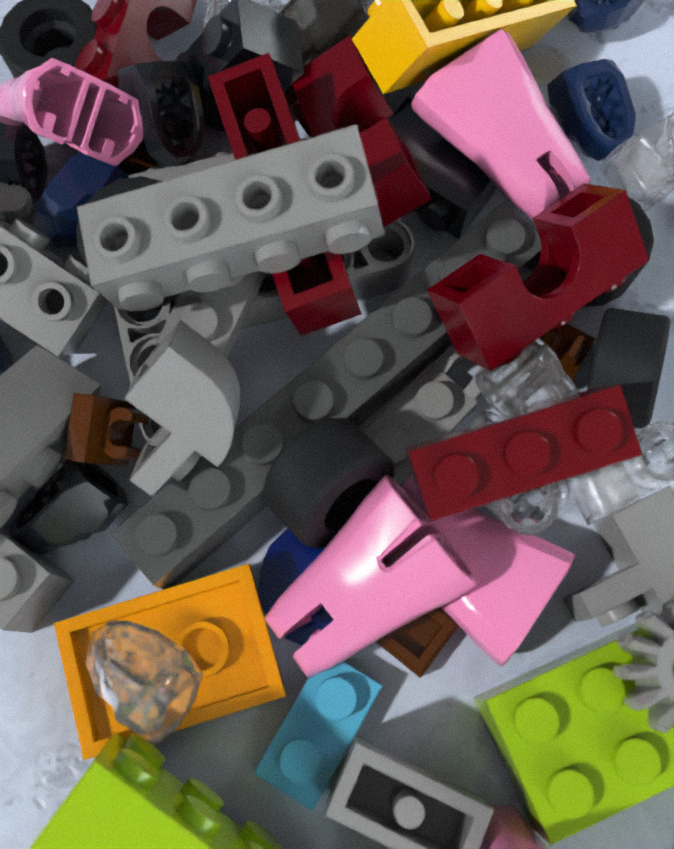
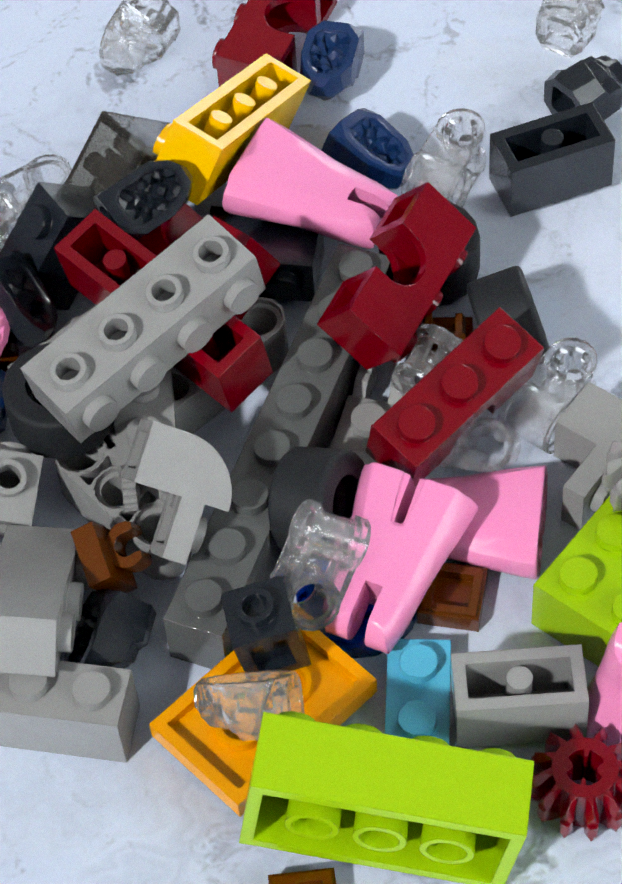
camera: 25 degrees left, 20 degrees down
(187, 603) = (264, 627): none -> black bracket
(280, 568) = (321, 552): none -> clear piece
(329, 64) = (146, 196): none -> black rock

